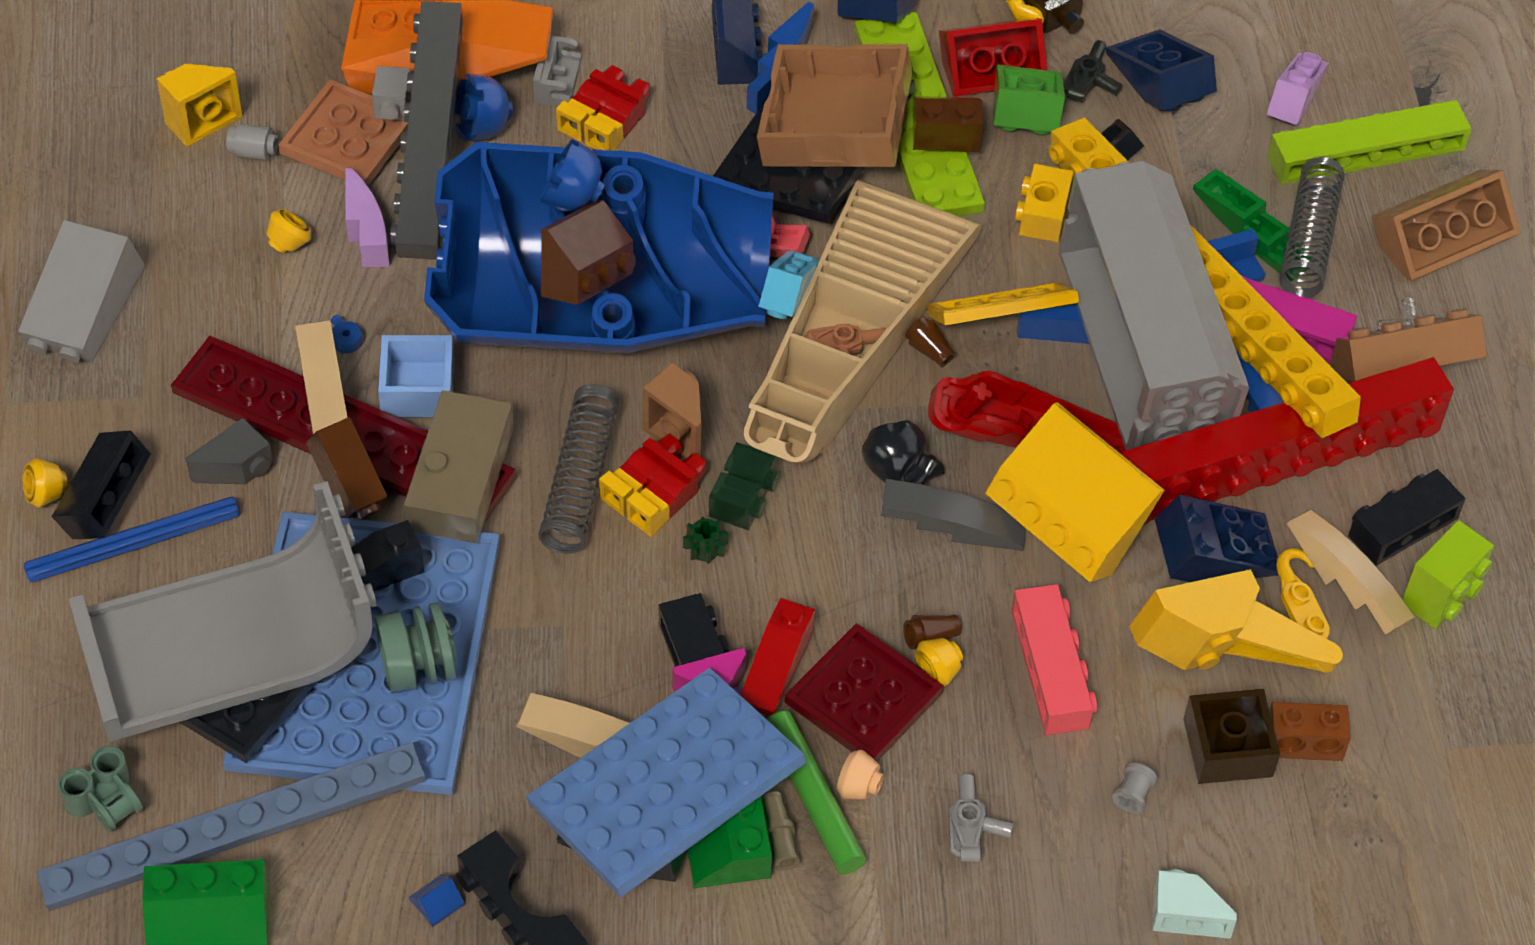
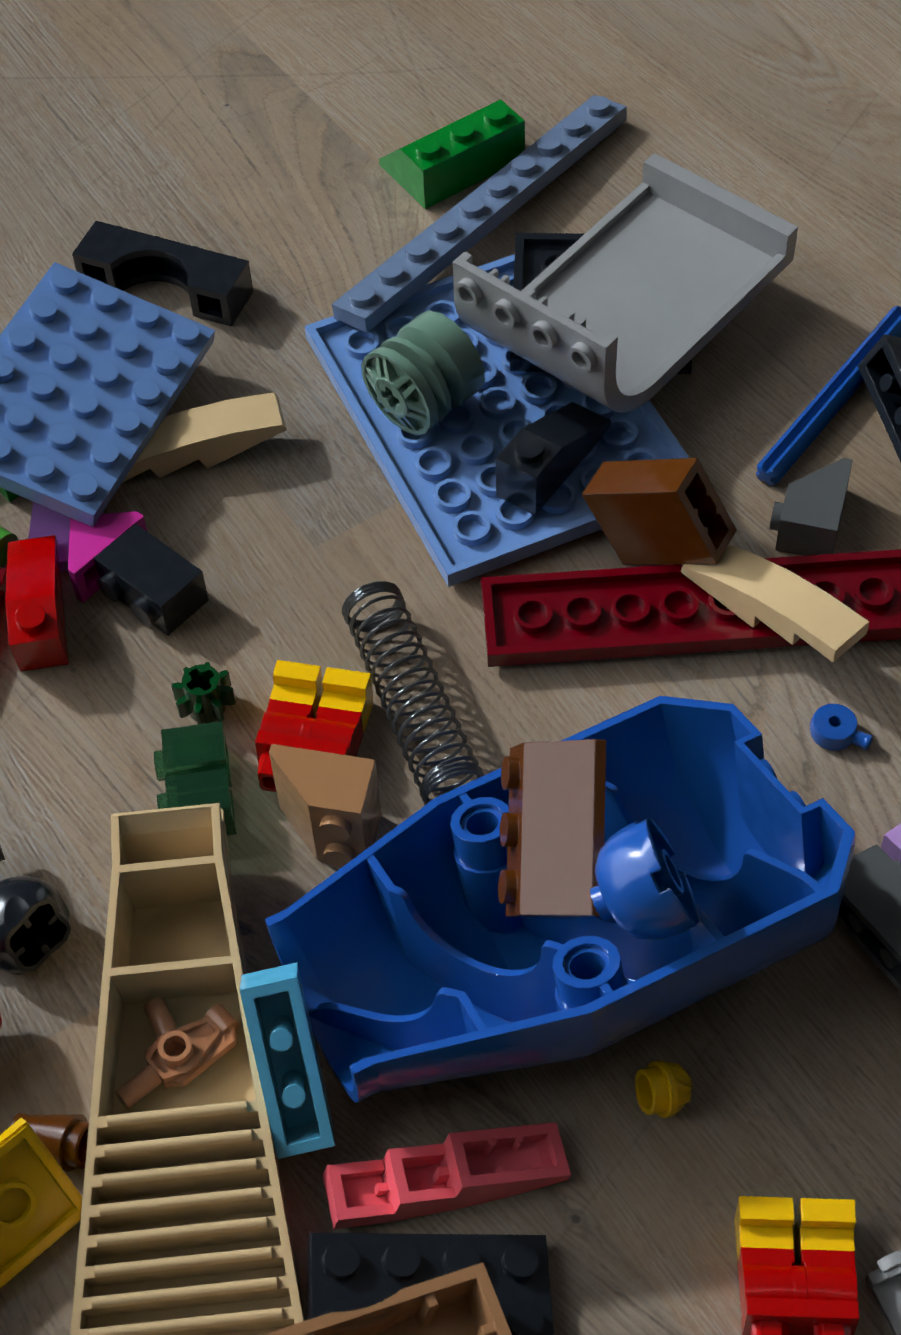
camera: 155 degrees right, 0 degrees up
(104, 793) = (622, 175): sand green piece -> none
(415, 373) = (694, 666): light blue piece -> none
(437, 899) = (261, 251): blue slope -> none
(459, 466) = (542, 595): dark tan brick -> none

